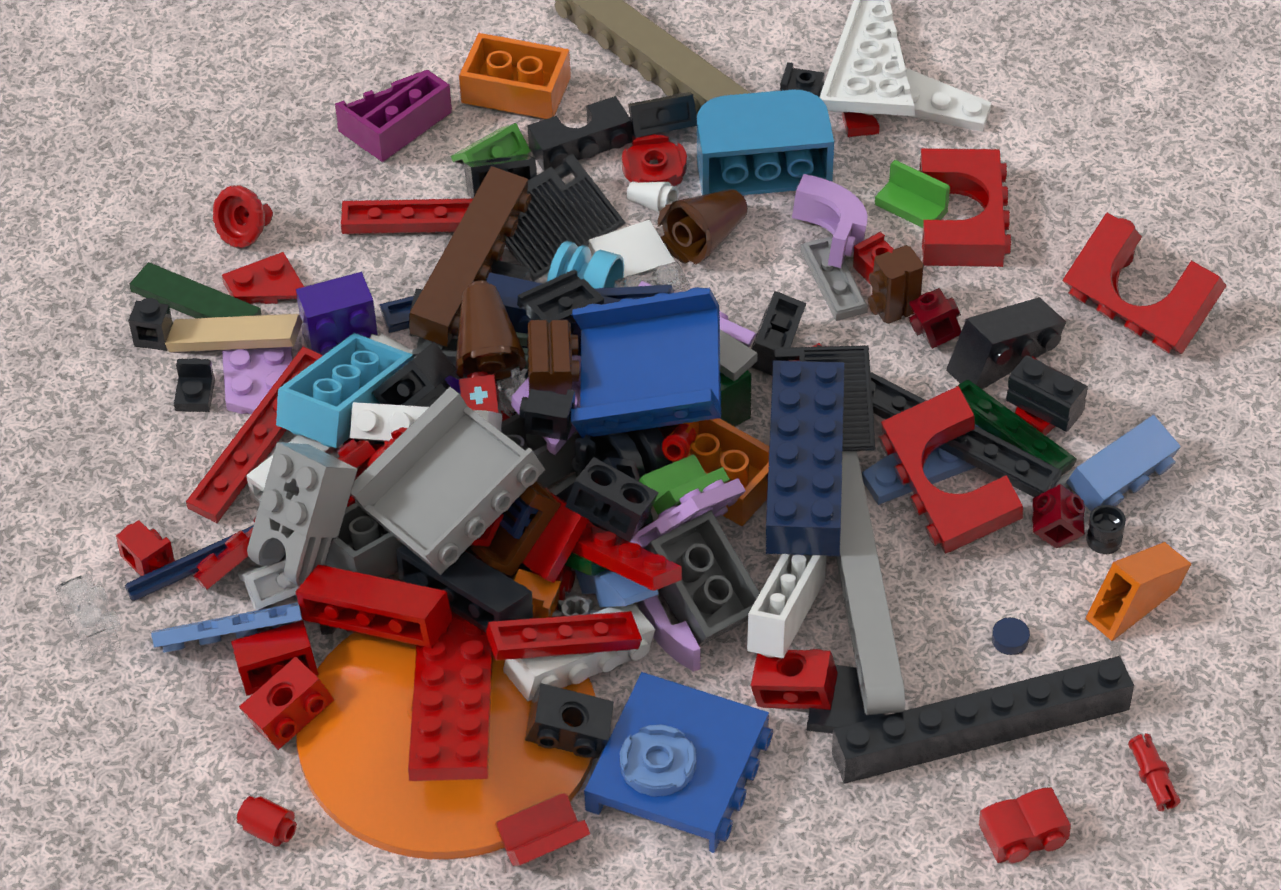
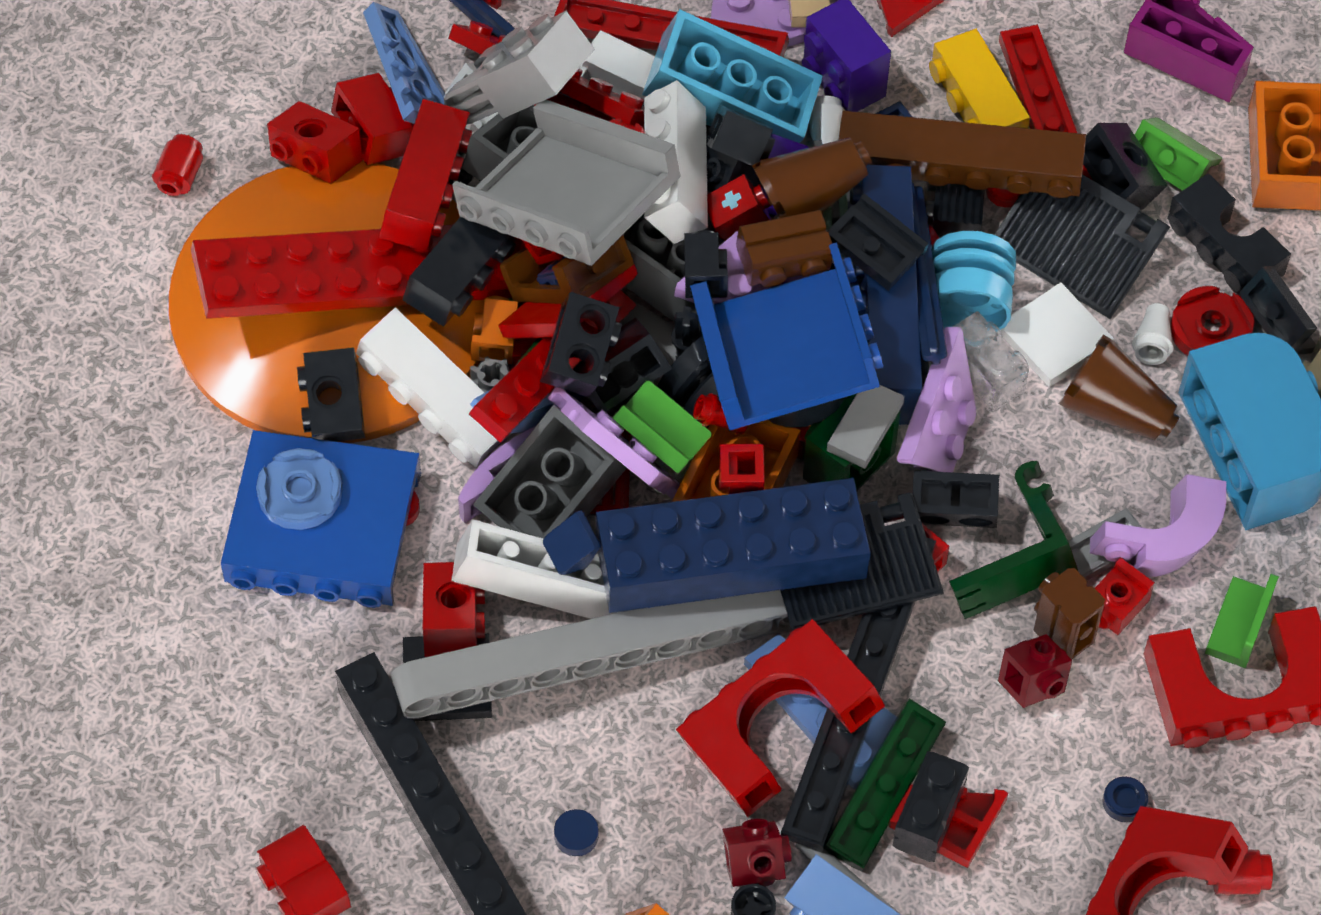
camera: 75 degrees right, 10 degrees up
(393, 248) = (976, 82): none -> yellow brick
(540, 829) = (208, 409): red panel -> none
(563, 635) = (417, 354): red plate -> none
(743, 443) = (741, 468): none -> red brick
(781, 555) = (572, 544): none -> dark blue slope
(825, 281) = (1023, 569): none -> dark green hinge
(999, 340) = (1023, 757): black wedge -> none
(1047, 292) = (1123, 798): none -> dark blue tile

